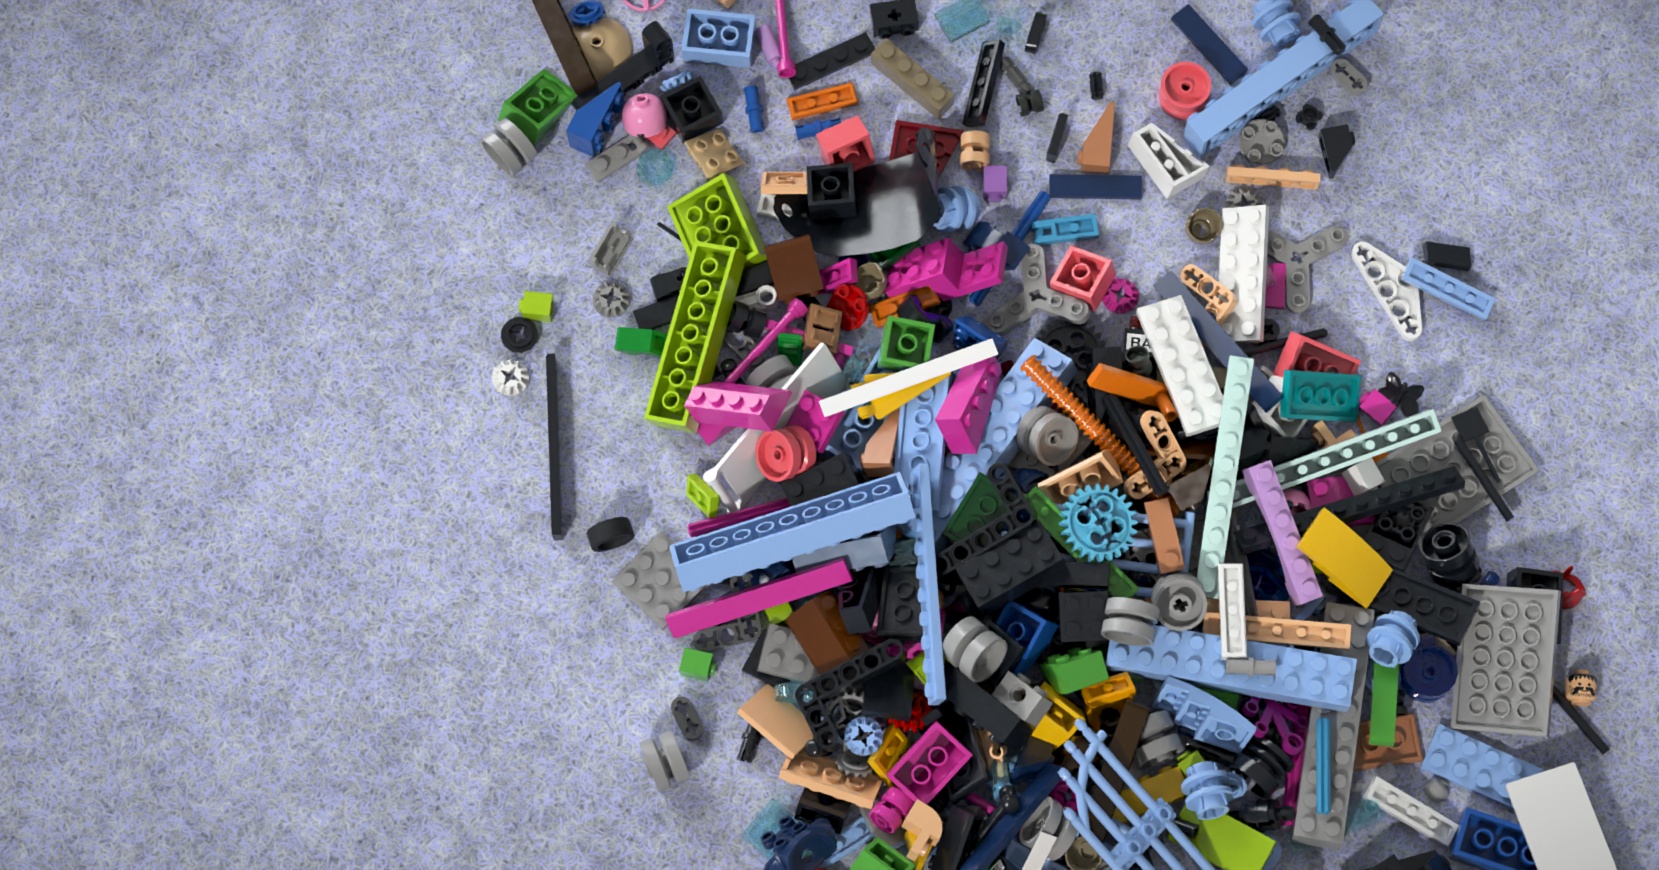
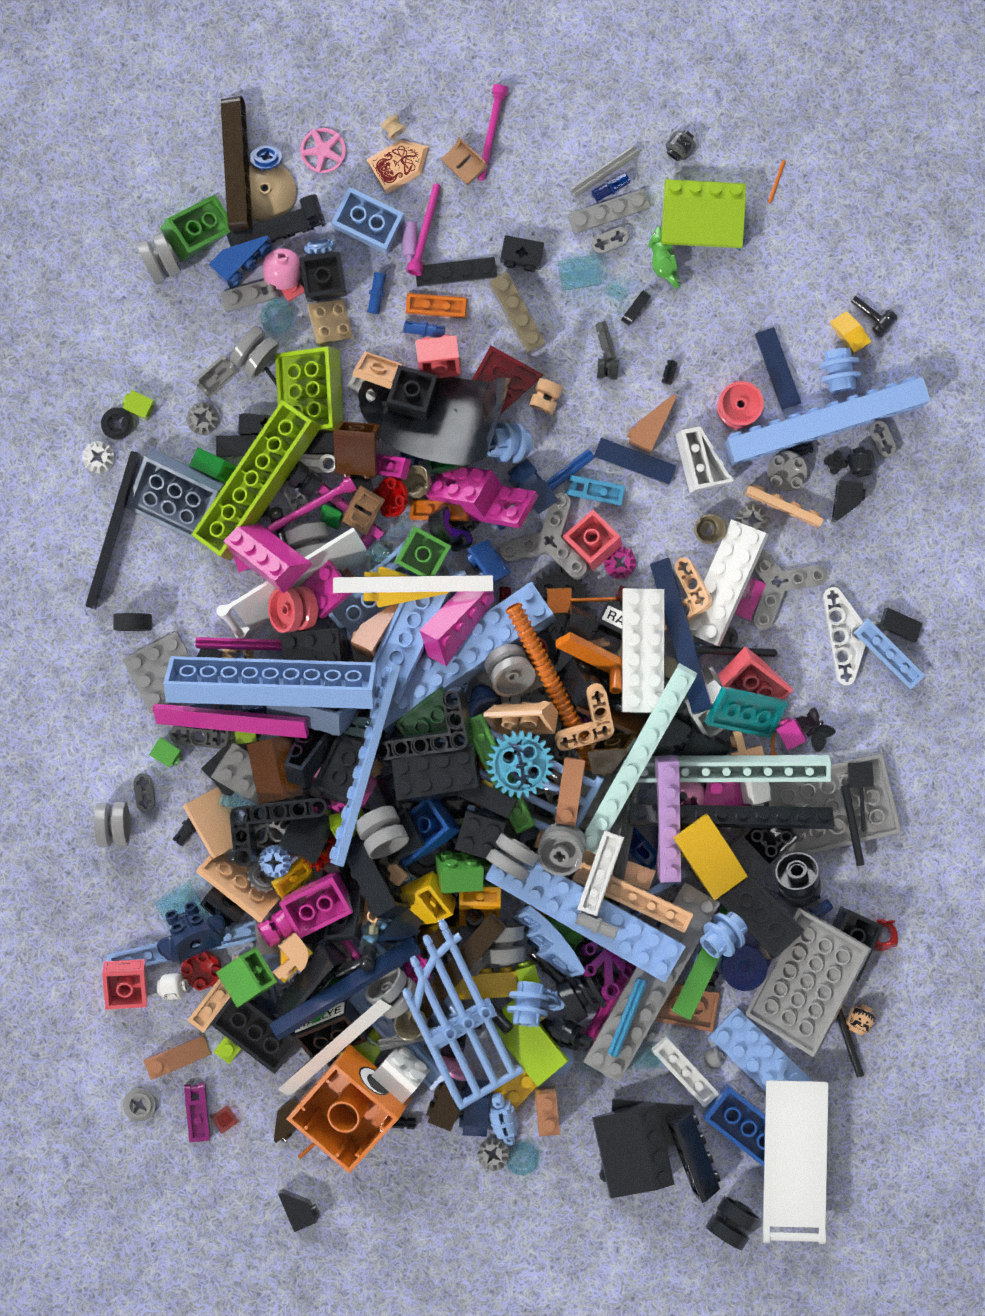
camera: 20 degrees right, 15 degrees up
(607, 387) = (172, 493): none -> sand blue slope
(645, 207) = (254, 352): none -> light grey wheel
(702, 495) = (218, 624): lime plate -> none
(983, 83) = (575, 338): black plate -> none
(994, 183) = (552, 430): medium lavender brick -> none
(1034, 704) = (399, 875): light grey brick -> none
(1056, 138) = (618, 408): black tile -> none
(1075, 349) = (560, 598): none -> orange piece
(1135, 444) = (576, 707): black axle -> none
(1138, 361) = (607, 635): pearl dark grey wheel -> none
(1327, 34) = (874, 404): black axle -> none
(1336, 105) = (861, 462): none -> black head

